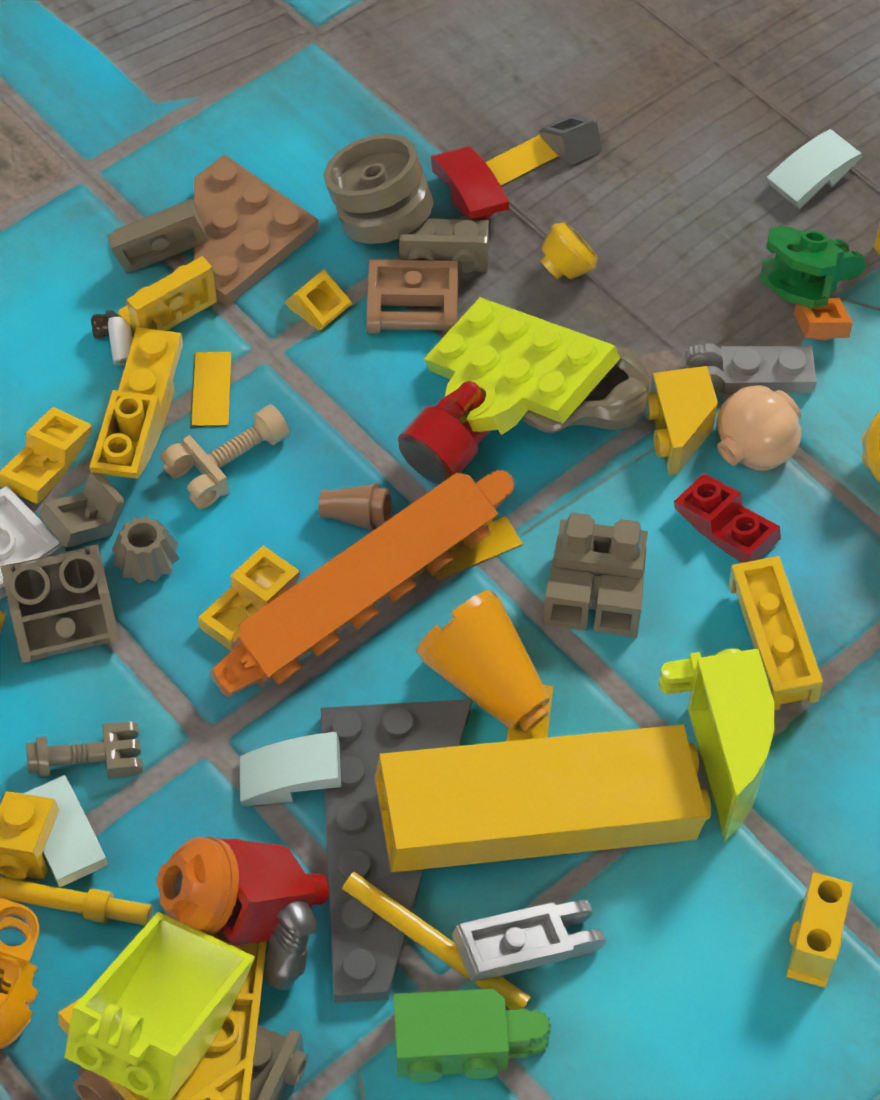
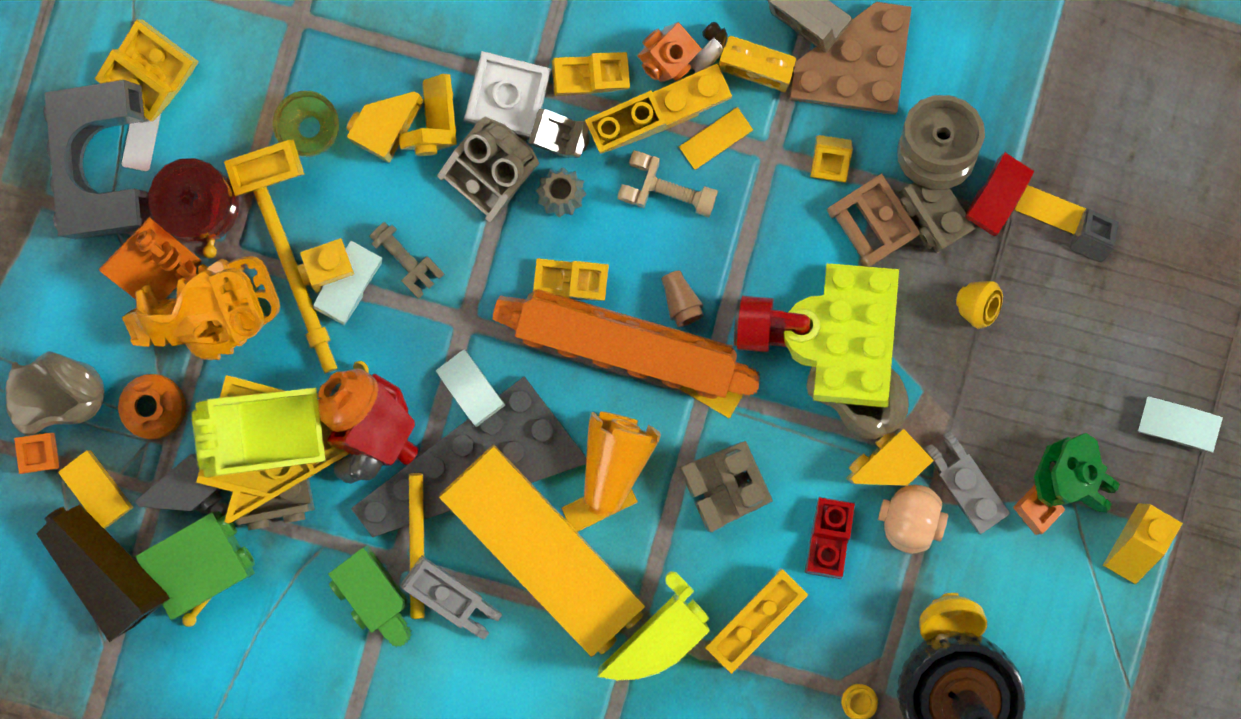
camera: 60 degrees right, 30 degrees up
(87, 363) = (668, 53): none -> orange brick

